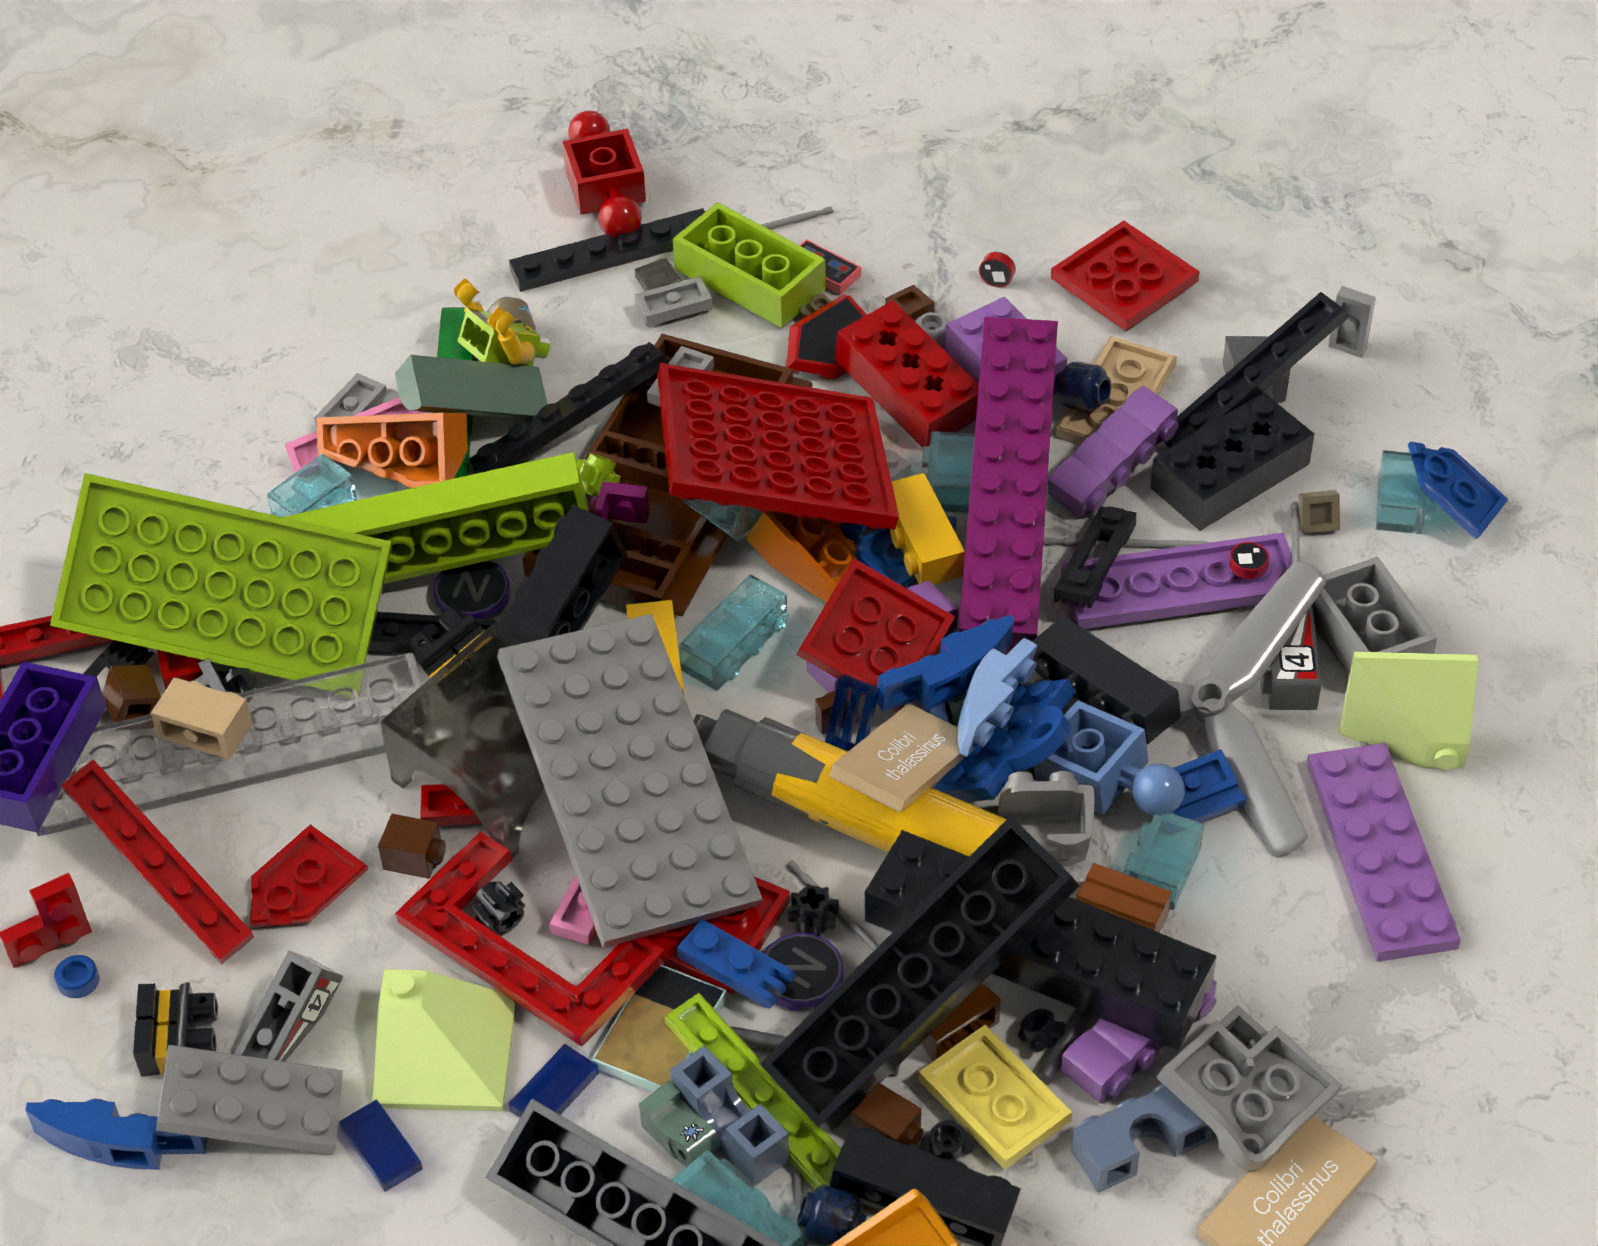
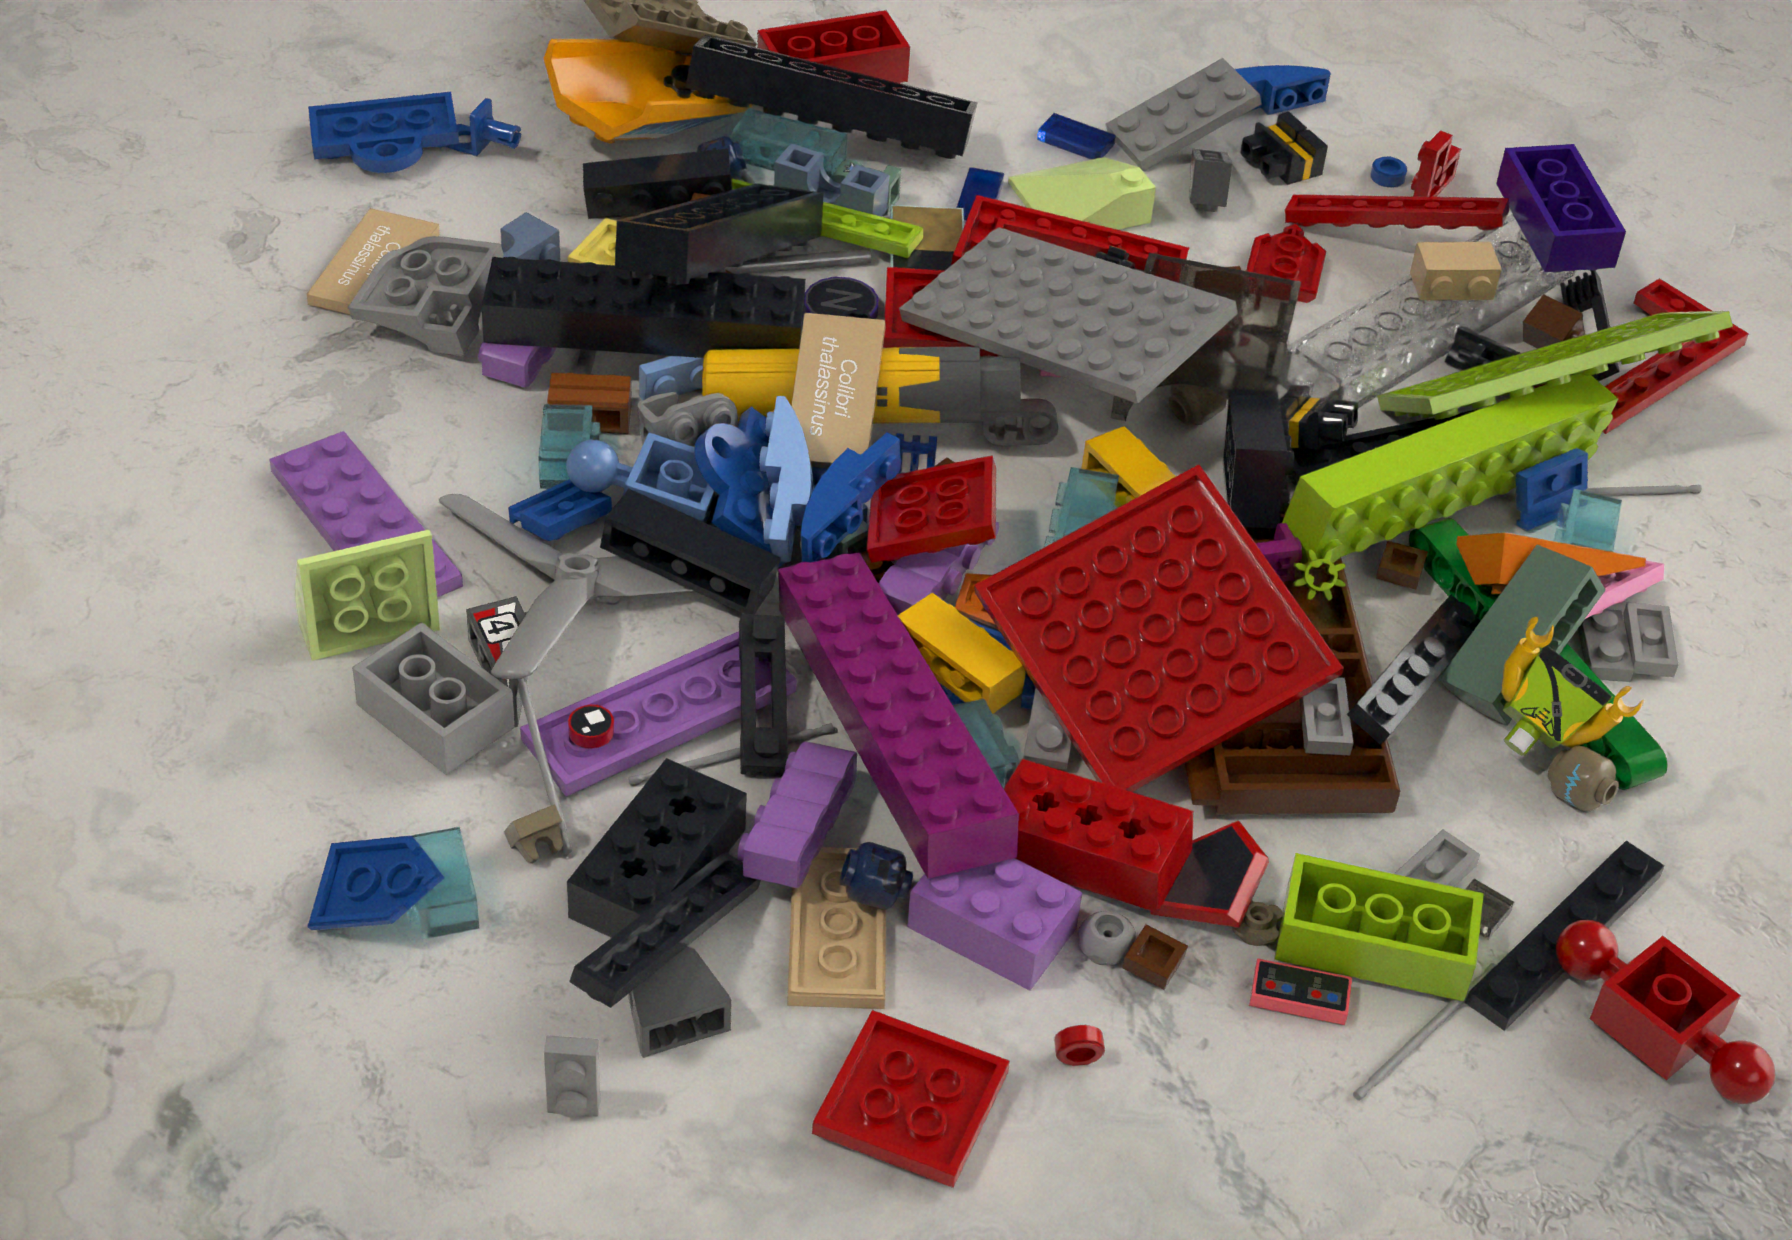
camera: 150 degrees right, 5 degrees down
(735, 964) = (888, 270): blue hinge -> none

